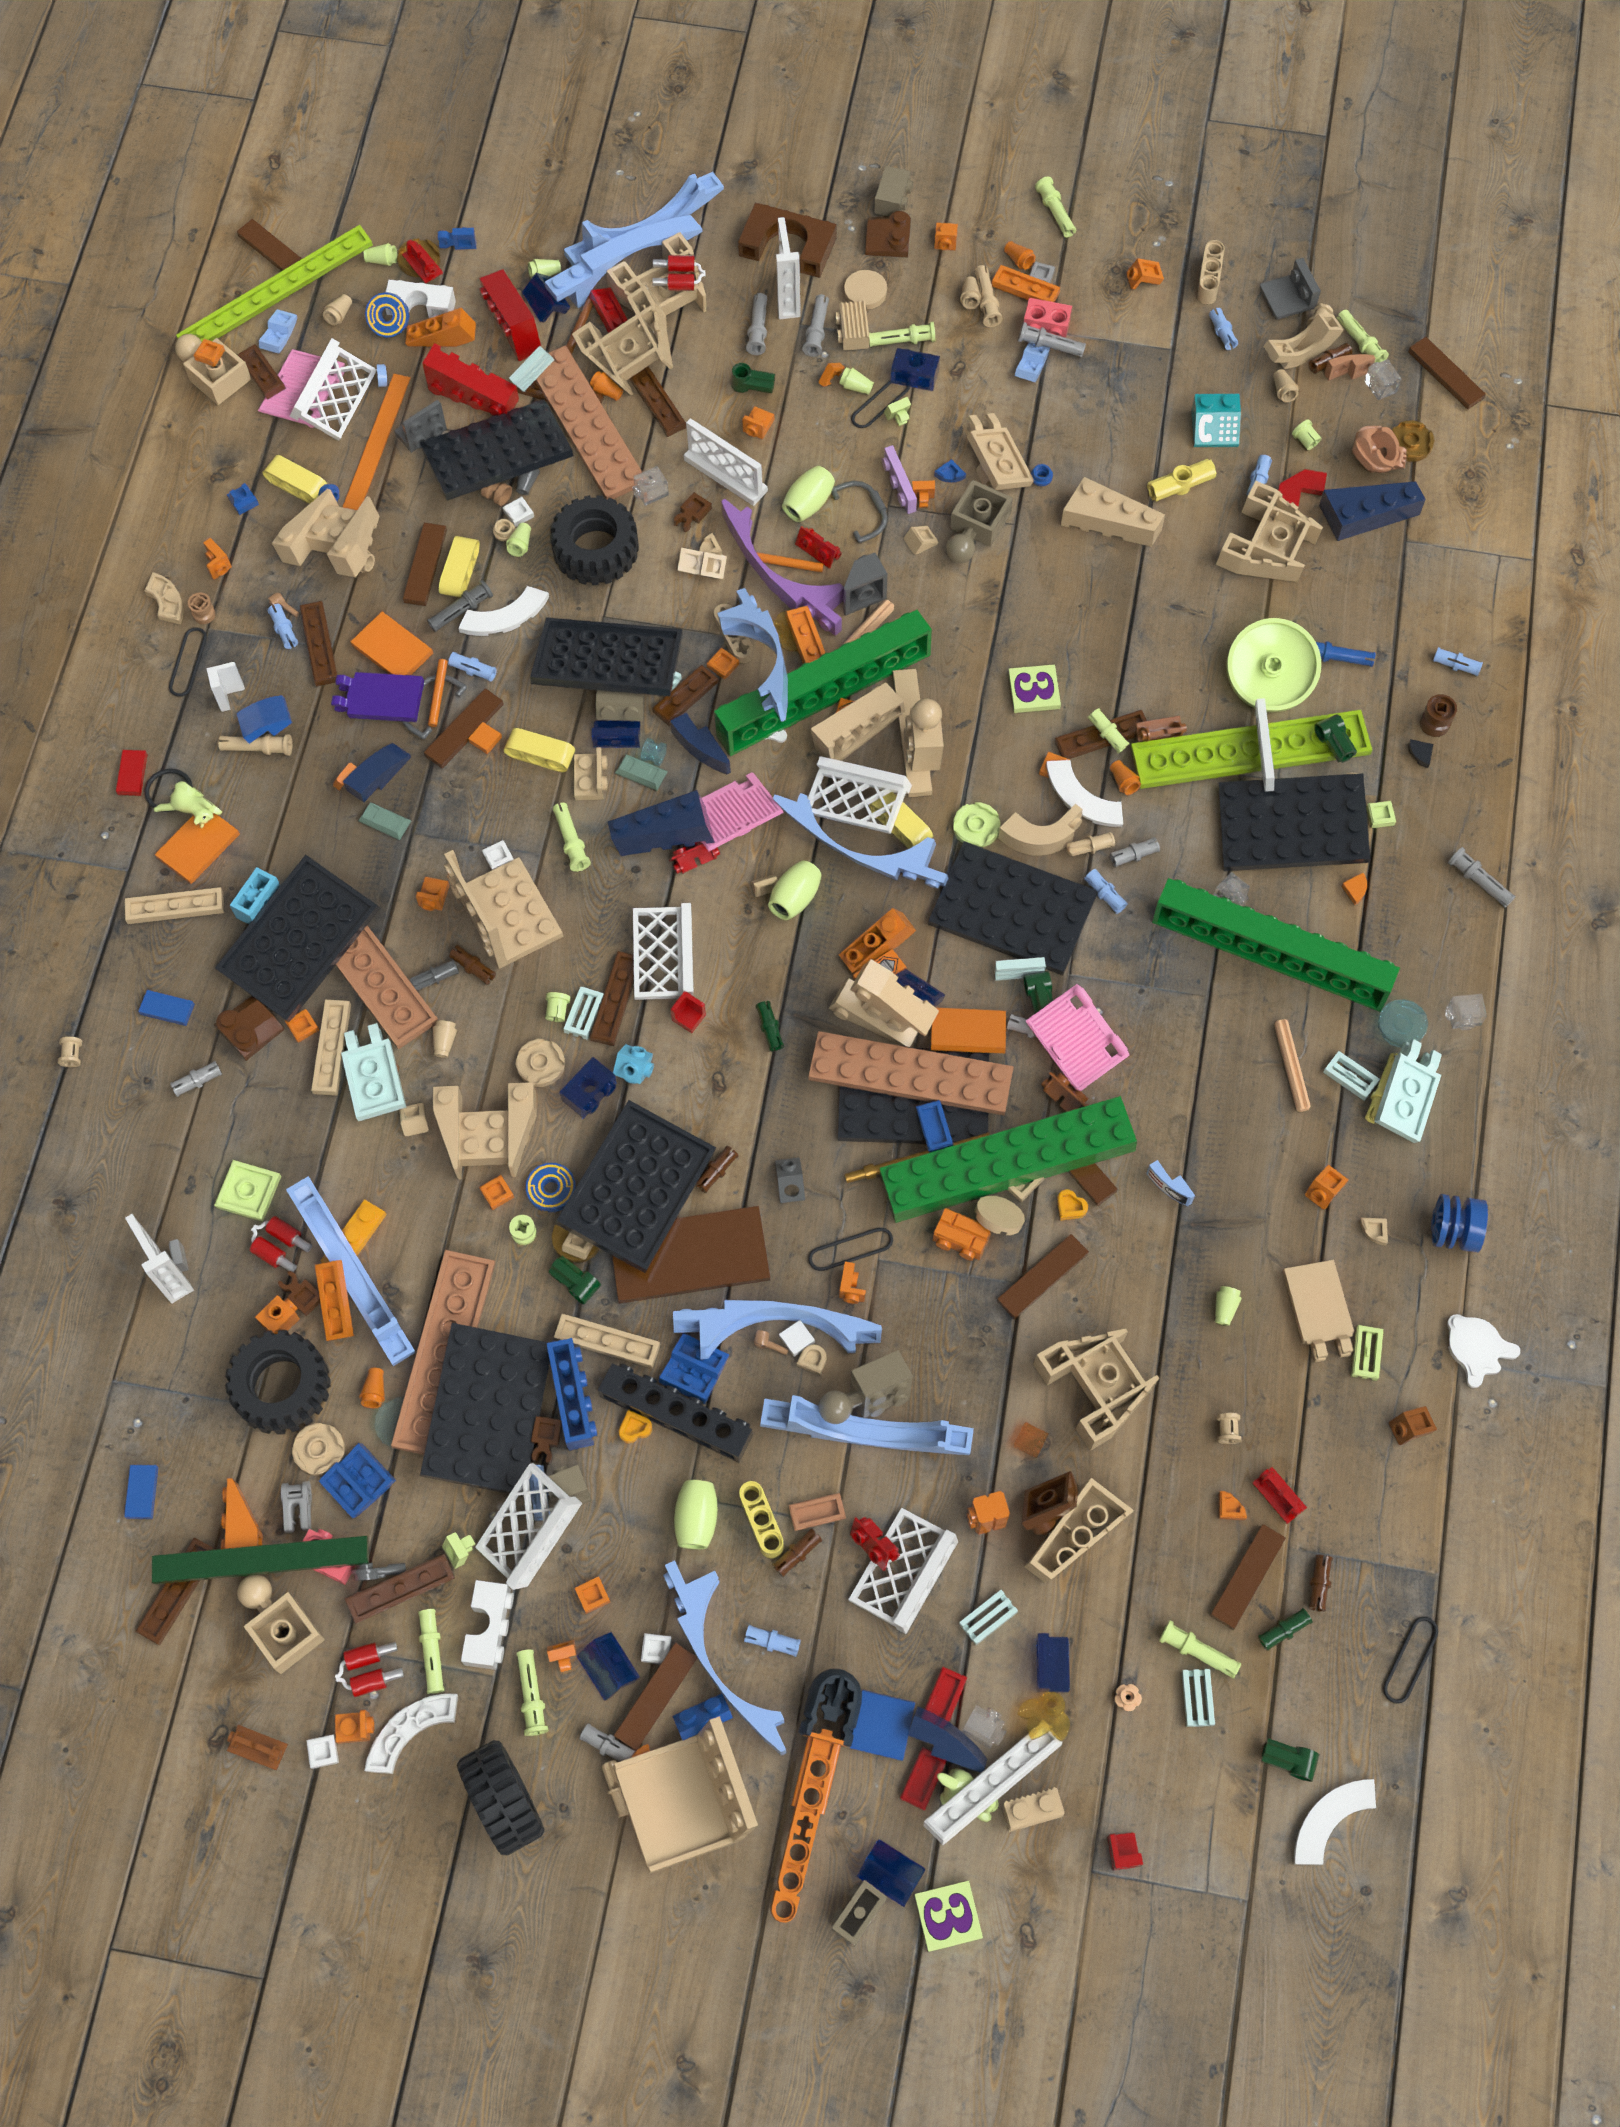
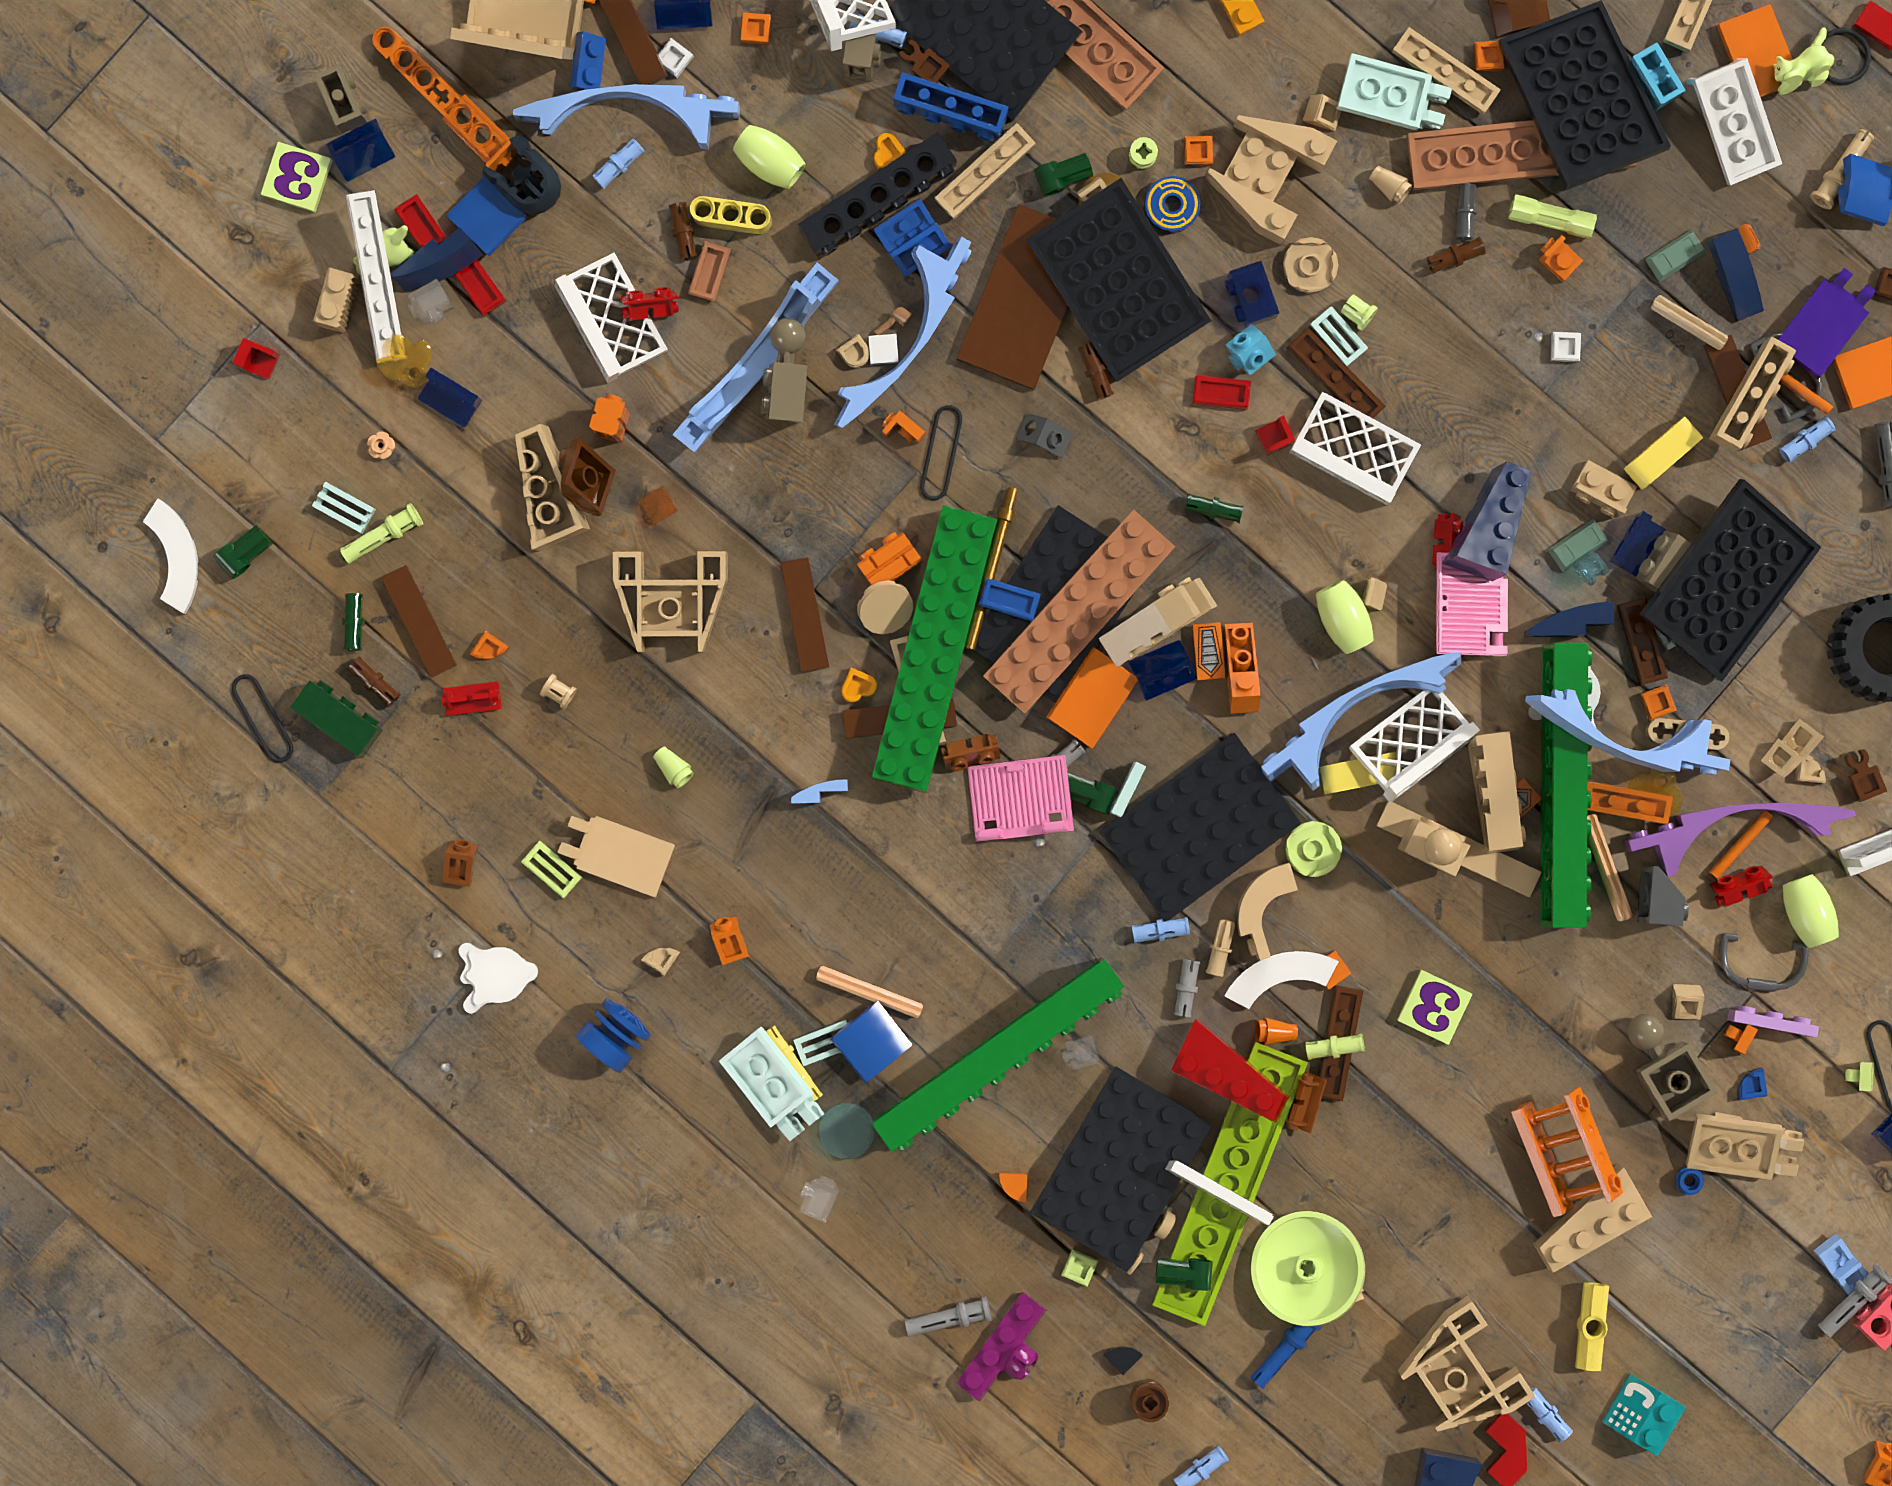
camera: 125 degrees right, 20 degrees up
(258, 827) = (1736, 121): none -> white plate
(407, 928) = (1571, 221): none -> yellowish green axle
(431, 782) = (1689, 322): none -> tan axle
(462, 708) = (1753, 394): none -> tan brick
(485, 738) = (1711, 406): orange tile -> none
(505, 910) = (1497, 313): tan bracket -> none
(506, 618) = (1847, 507): white tile -> none
(573, 845) = (1530, 426): yellowish green pin -> none
(677, 1071) = (1221, 392): none -> red tile
(1005, 1603) = (521, 343): light aqua tile -> none
(1096, 556) = (1546, 1167): none -> orange fence
(1178, 786) = (1218, 1067): none -> red wedge
(1311, 770) = (1164, 1225): none -> tan tile
(1328, 1040) = (871, 1041): none -> blue slope
(1369, 1593) = (337, 717): none -> dark green brick
(1475, 829) = (1004, 1349): none -> magenta plate

